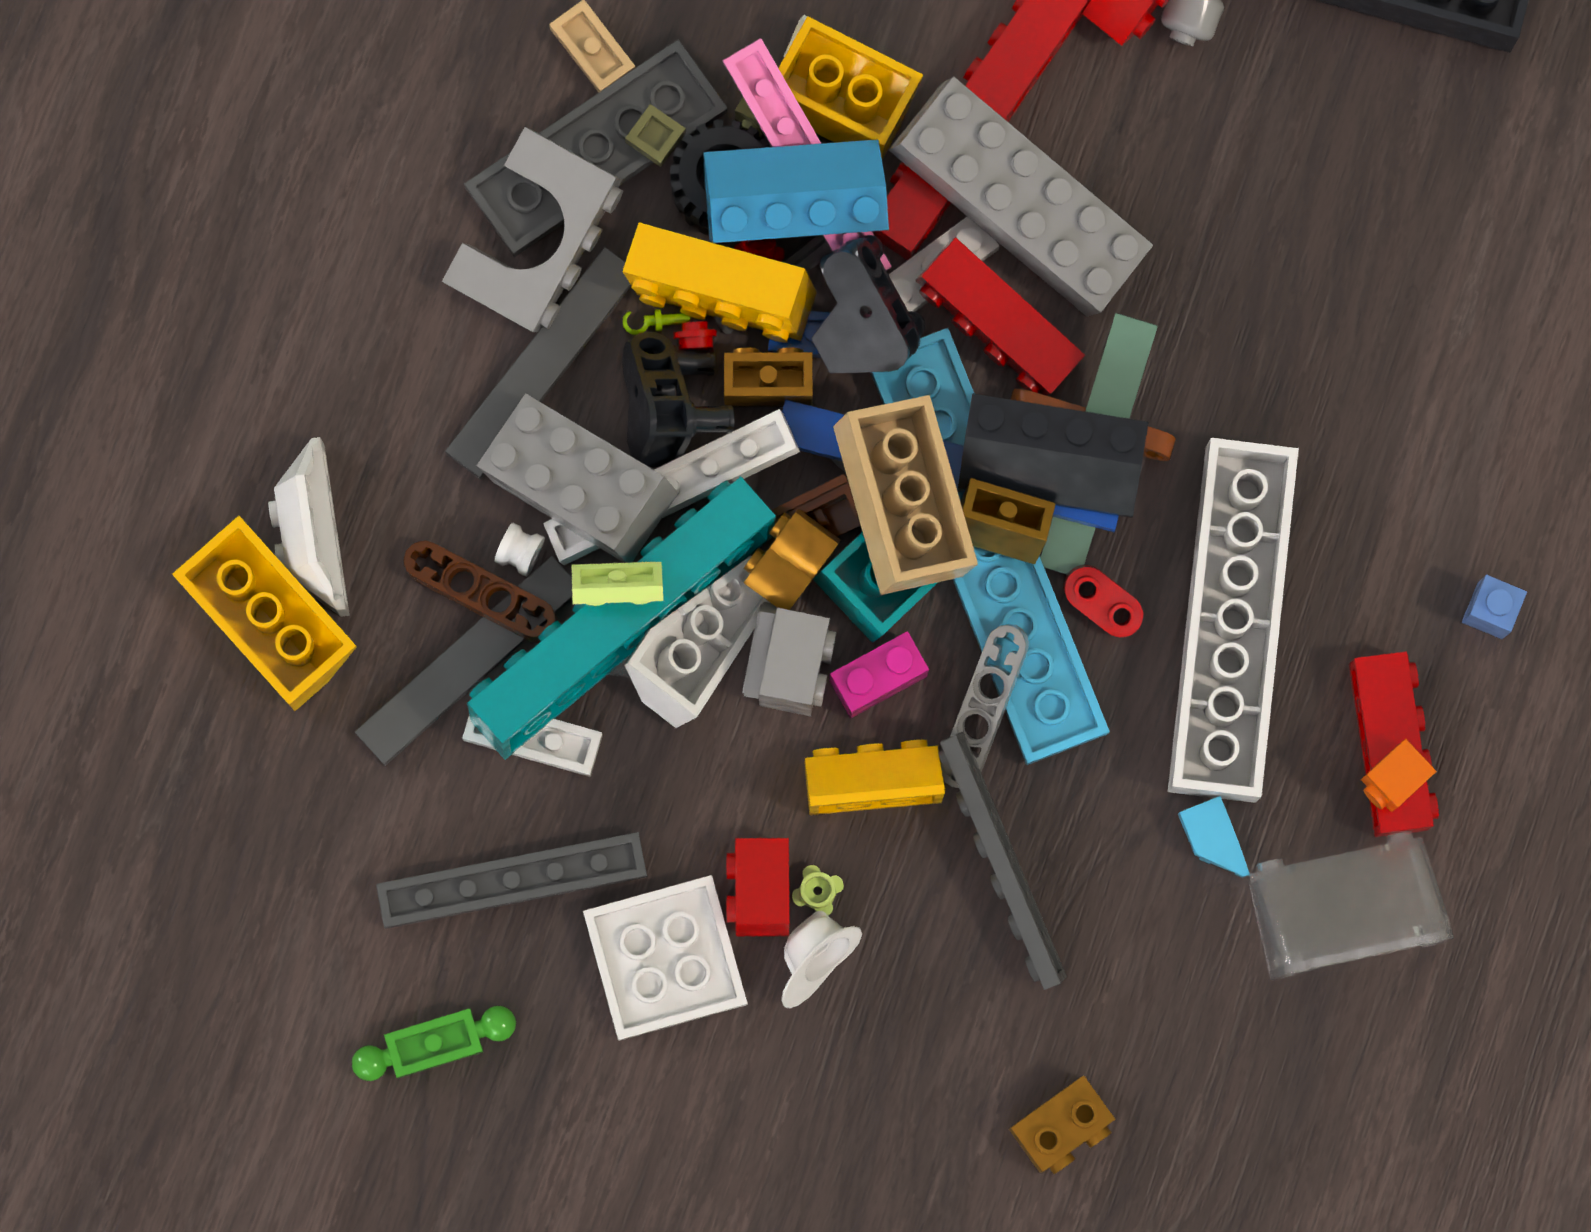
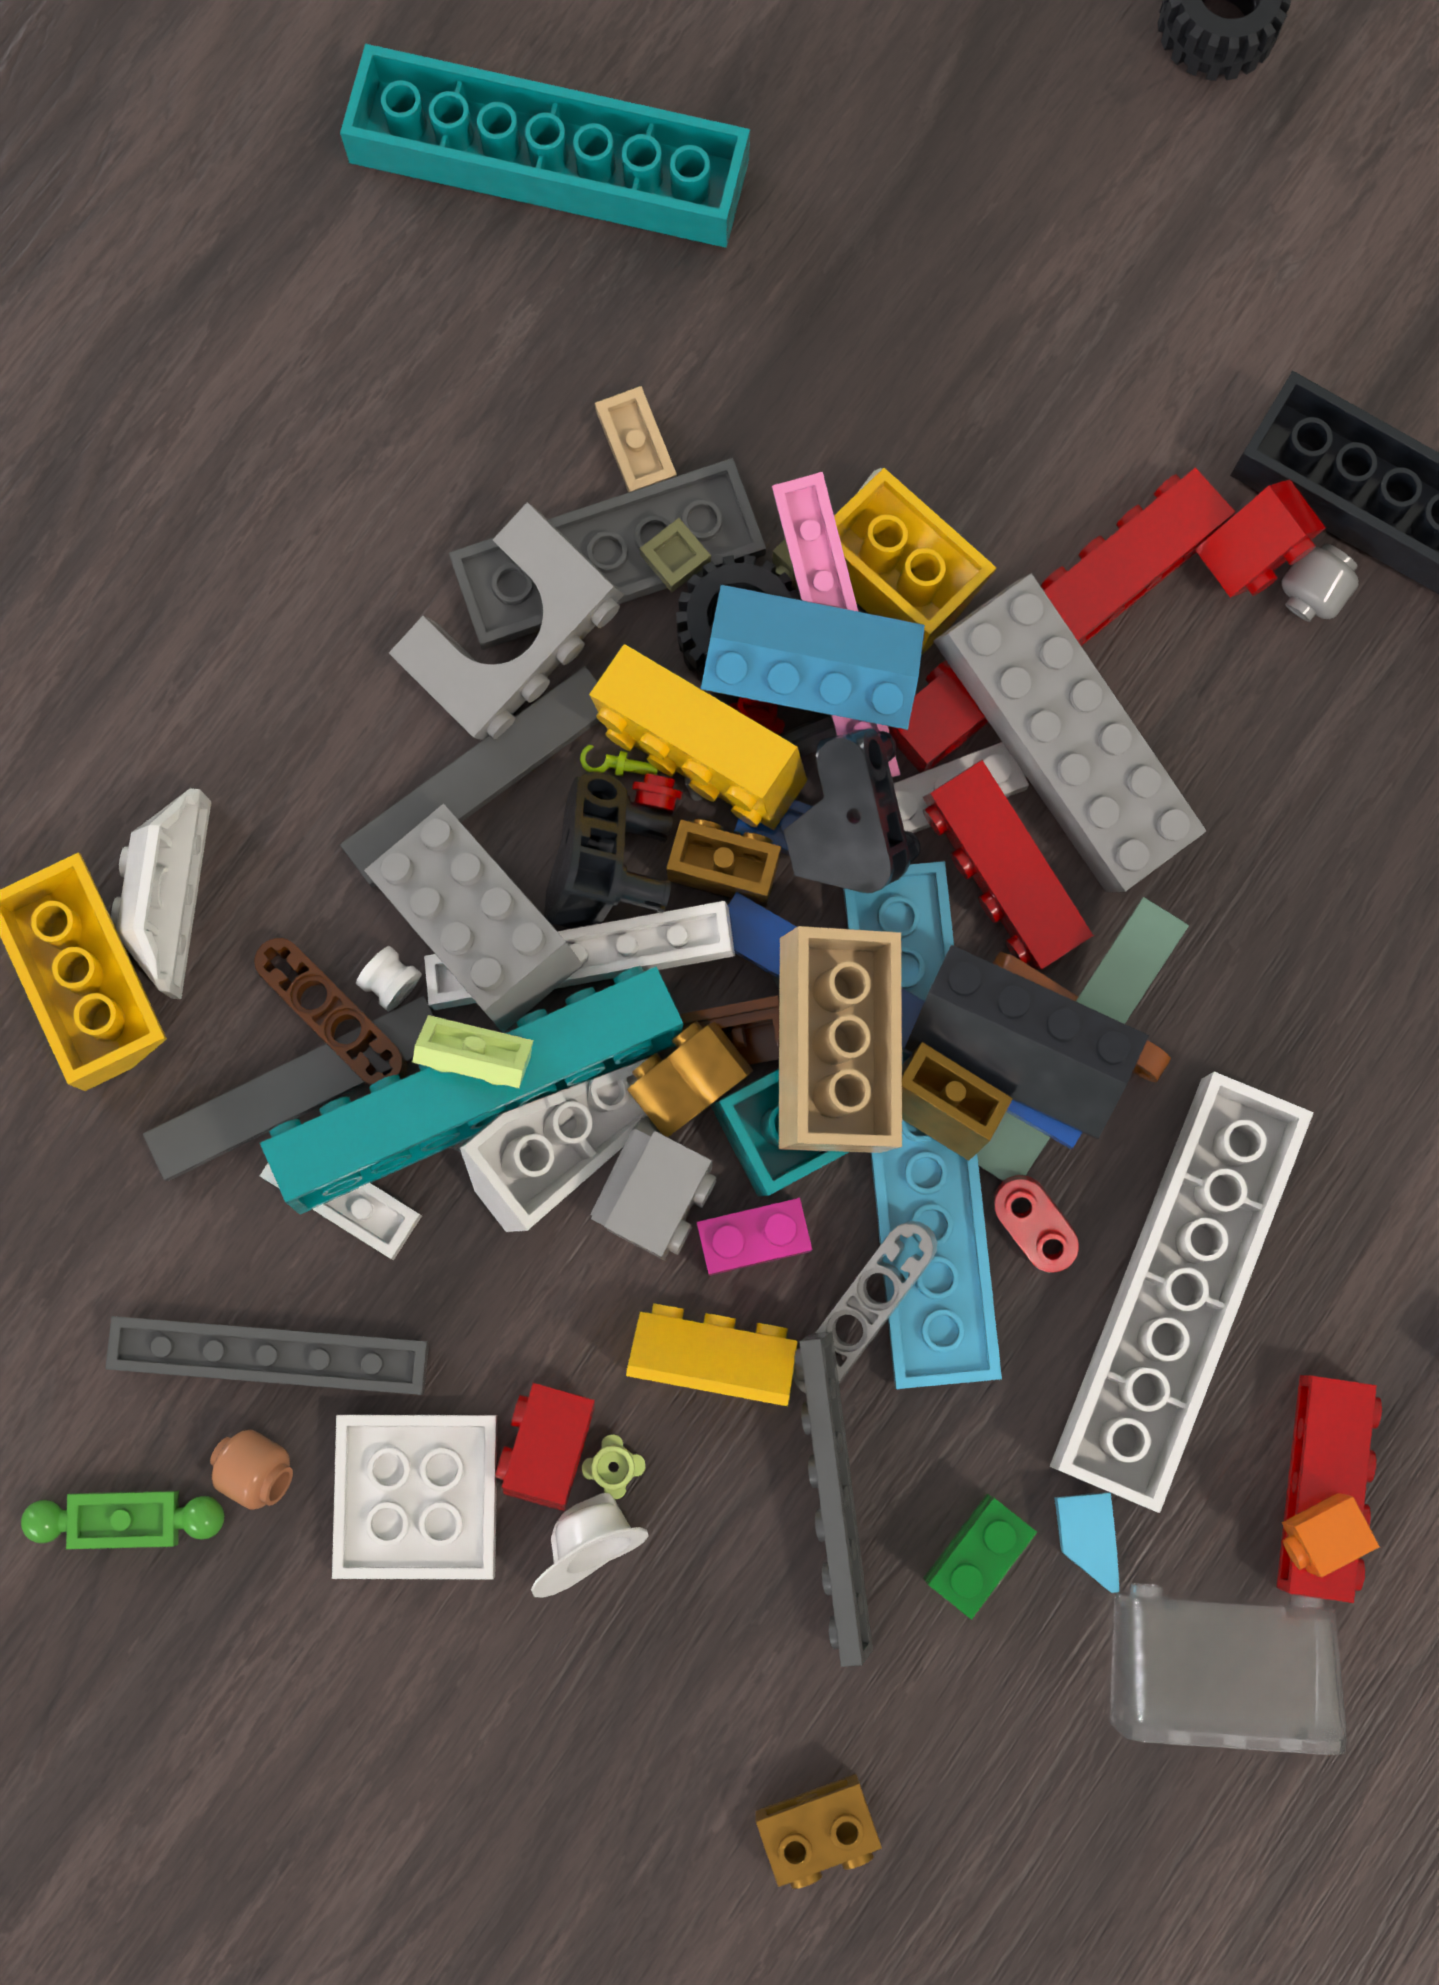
camera: 20 degrees right, 0 degrees up
(526, 973) = (251, 1469): none -> nougat head
(1130, 875) = (979, 1556): none -> green brick

